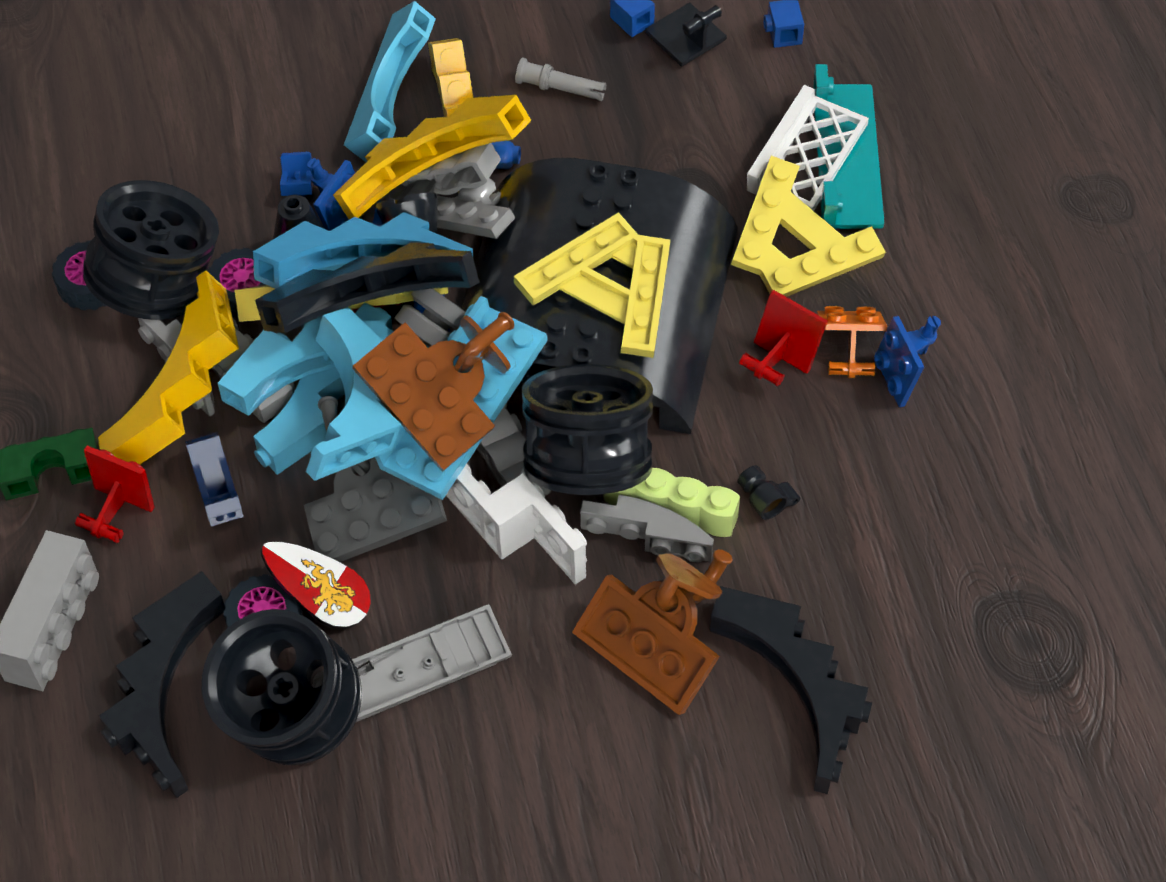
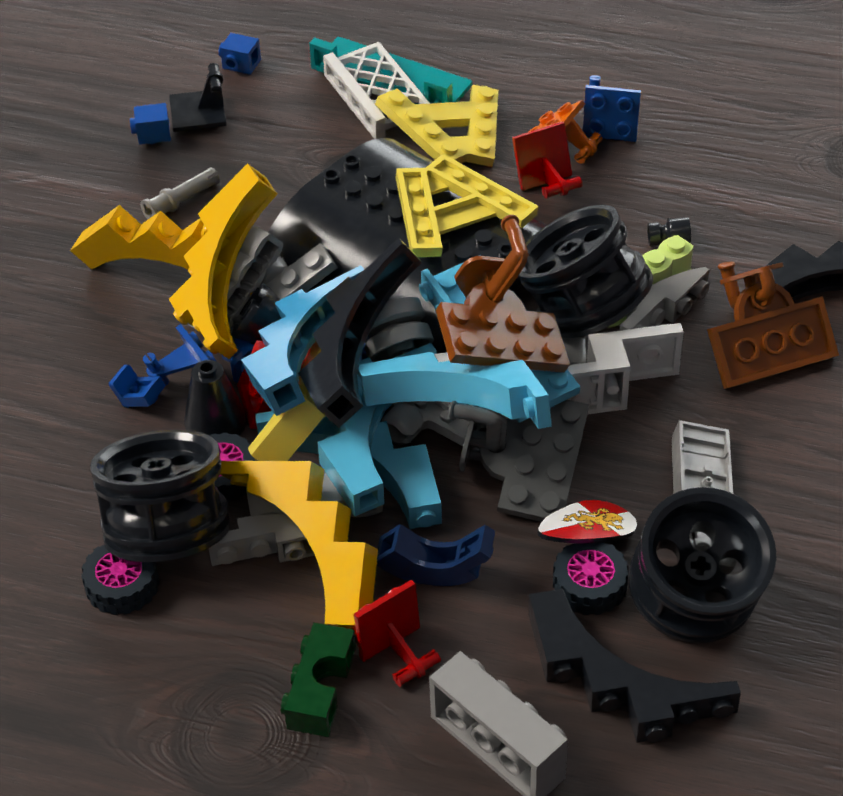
camera: 60 degrees left, 10 degrees down
(403, 40) = (53, 262): medium azure arch -> none

